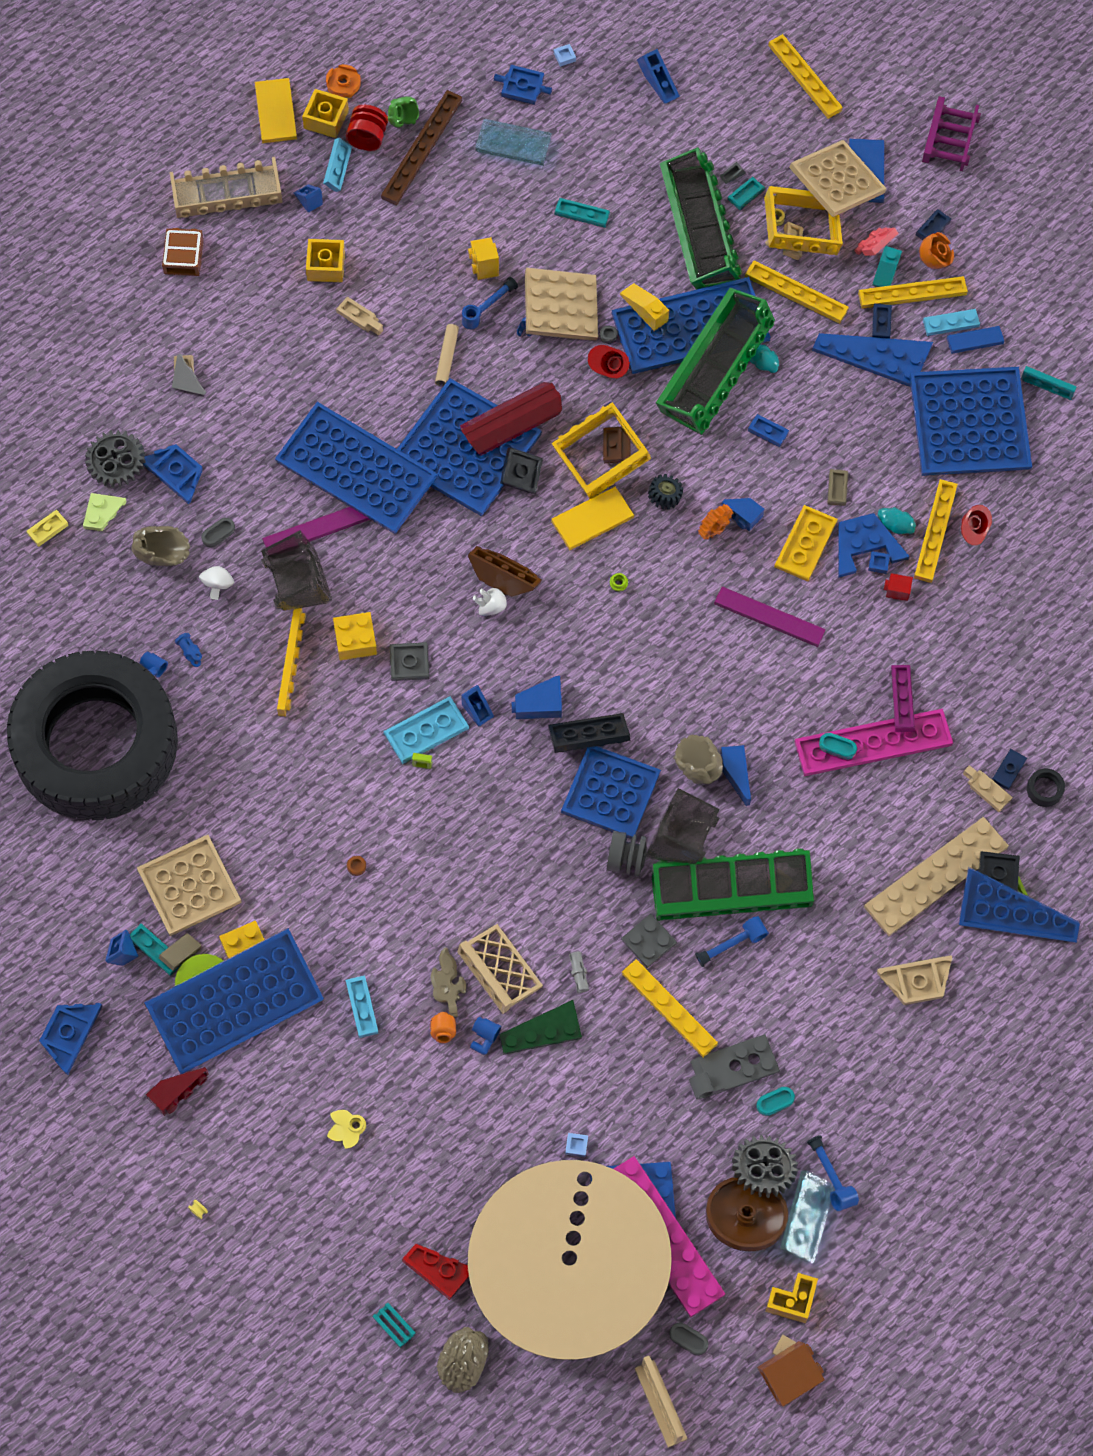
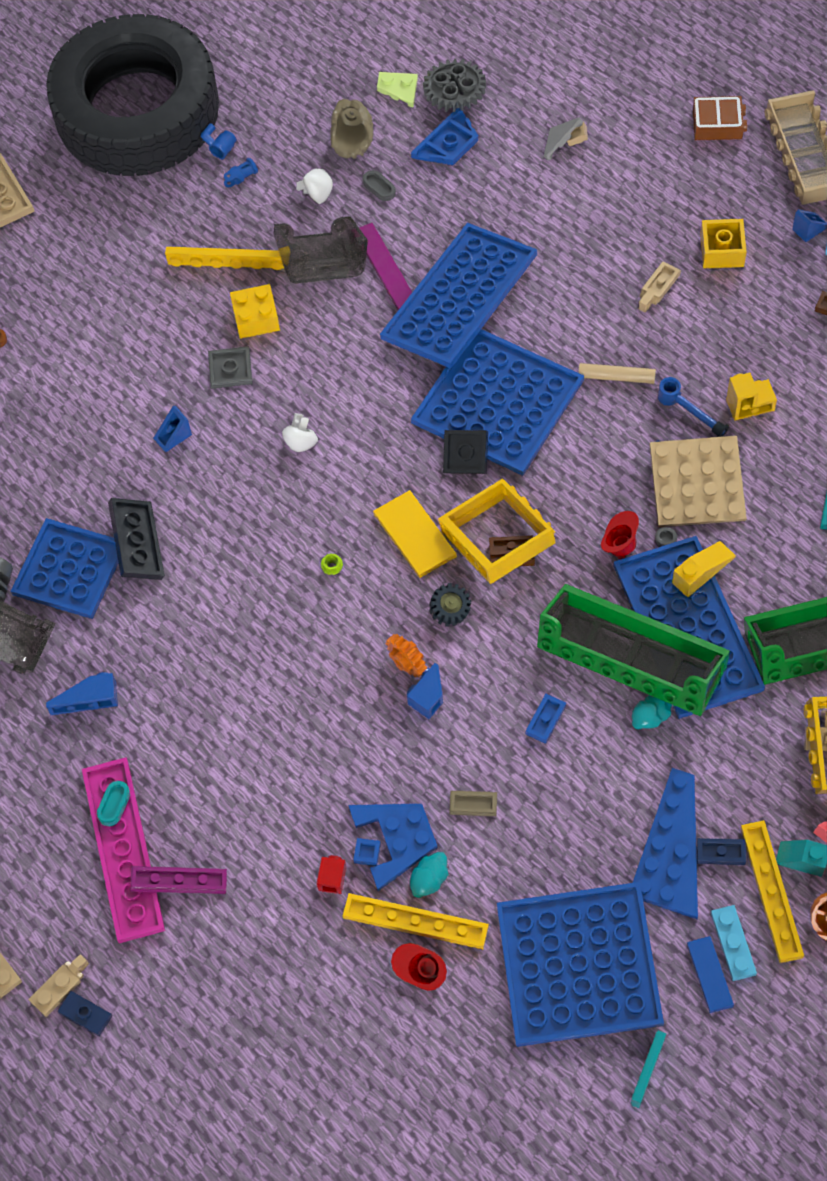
camera: 95 degrees right, 5 degrees down
(47, 528) = (375, 44): light yellow plate -> none
(422, 760) = (109, 384): lime tile -> none
(426, 729) = (148, 388): medium azure tile -> none
(502, 572) = (338, 443): reddish brown wedge -> none
(513, 418) = (530, 433): dark red piece -> none
(539, 701) = (178, 492): blue slope -> none
(699, 759) = (96, 650): dark tan hair -> none
(770, 616) = (290, 730): magenta tile -> none
(796, 292) = (752, 747): yellow plate -> none
(806, 543) = (393, 768): yellow tile -> none
(1037, 798) = (45, 1041): black tyre -> none

